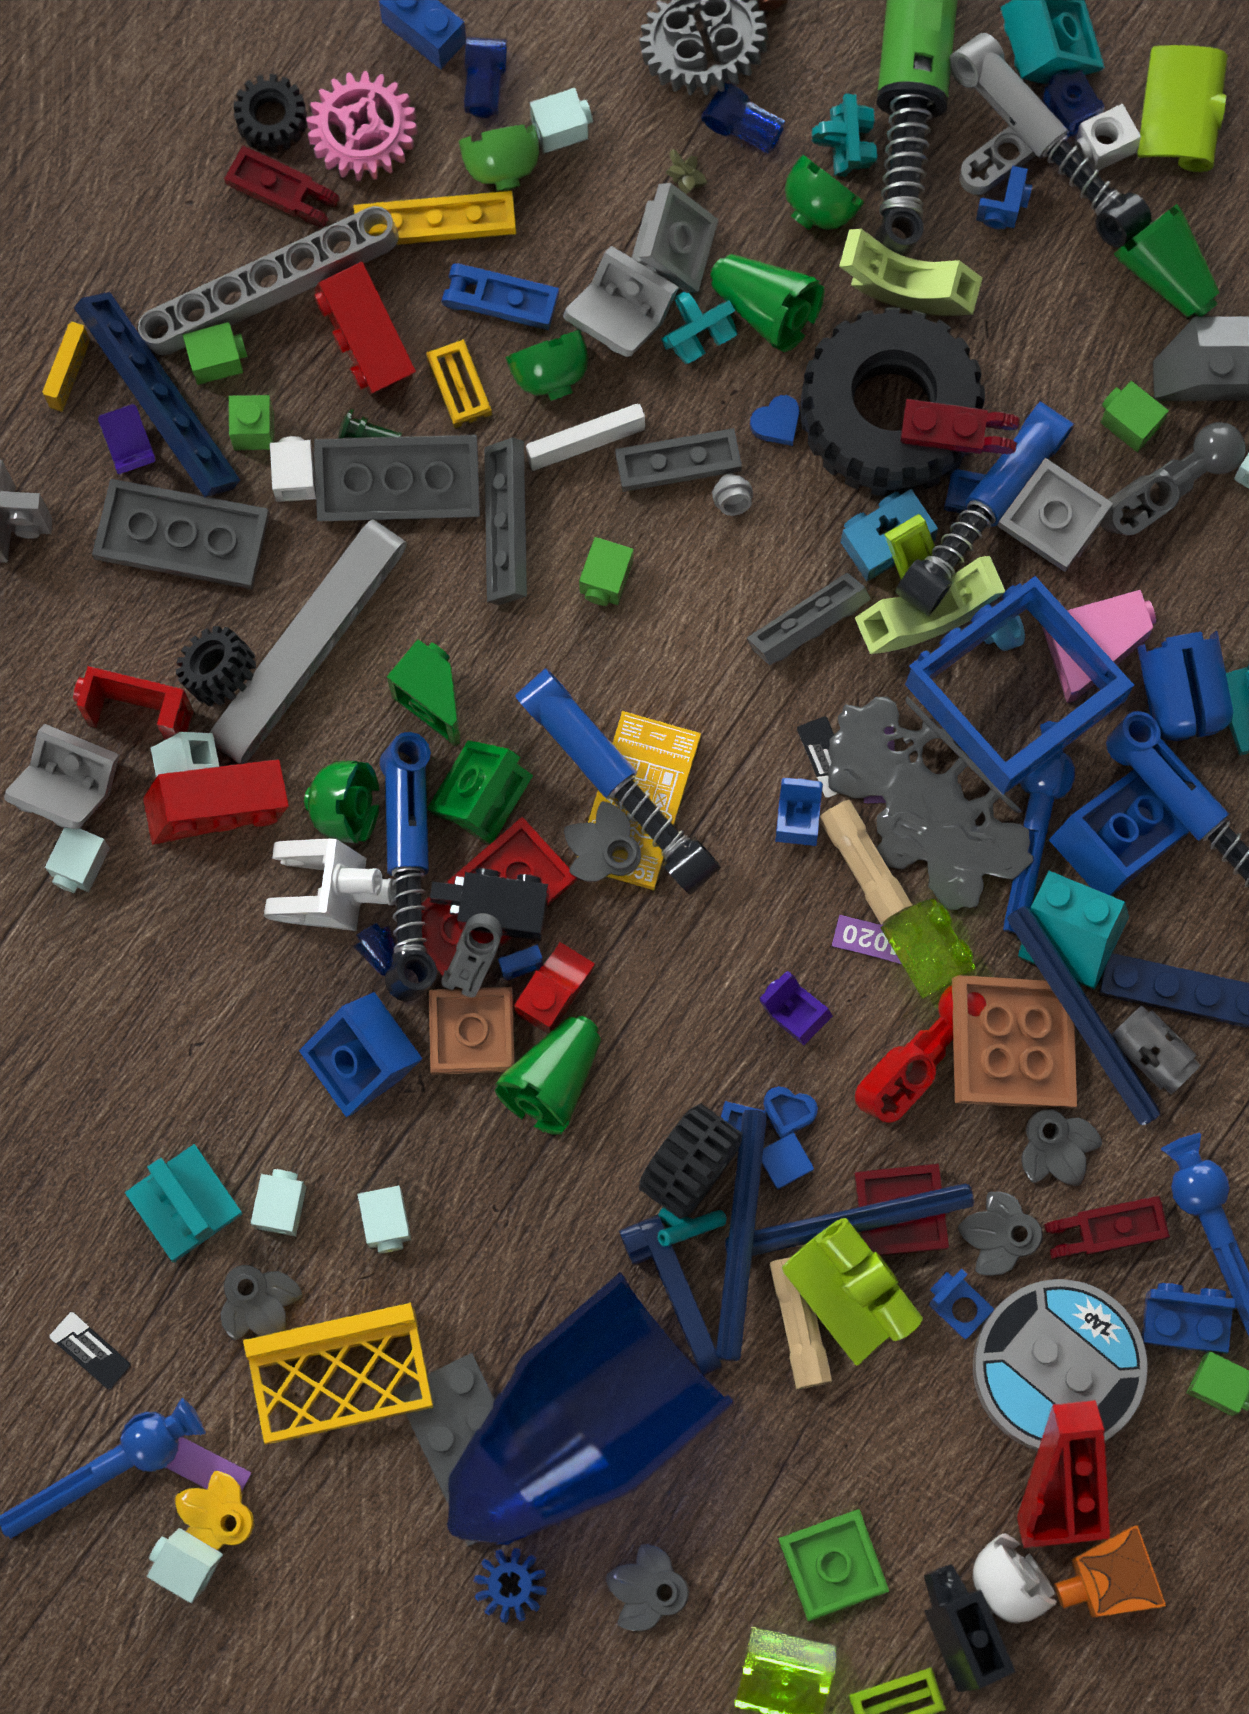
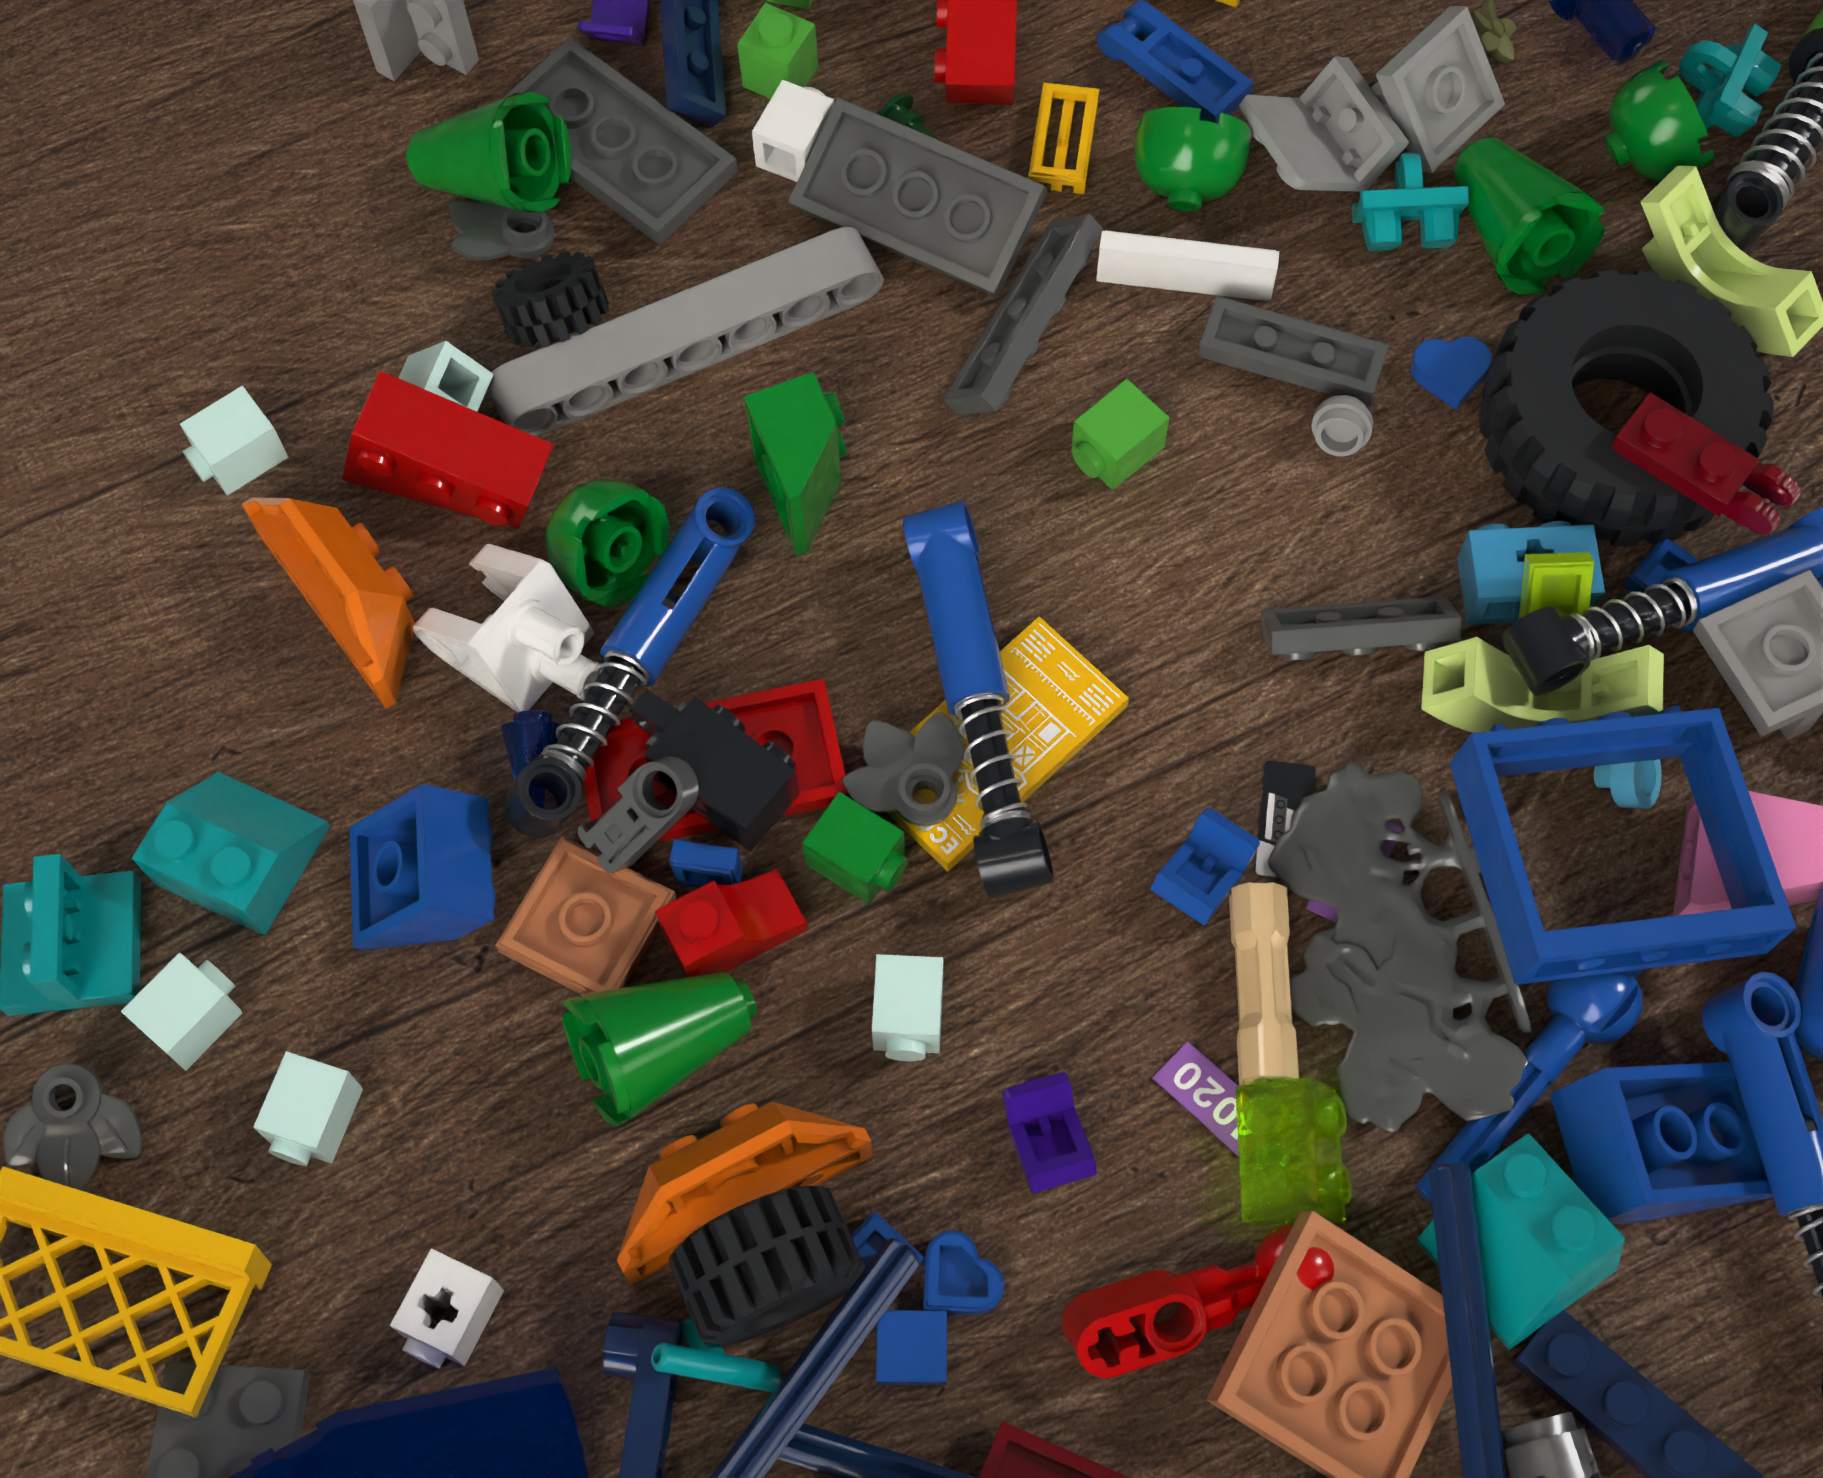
camera: 30 degrees right, 10 degrees down
(64, 778) = (285, 344): light grey bracket -> none
(101, 684) = (387, 252): red panel -> none
(120, 590) = (496, 154): none -> green cone
(141, 627) = (498, 231): none -> dark grey plate
(202, 911) = (342, 584): none -> orange wedge
(243, 1099) = (231, 849): none -> teal slope
(481, 790) = (793, 621): green bracket -> none
(523, 1262) = (443, 1284): none -> white brick
(599, 907) = (856, 849): none -> green brick
(640, 1124) = (742, 1161): none -> orange wedge
(679, 980) = (907, 1006): none -> light aqua brick

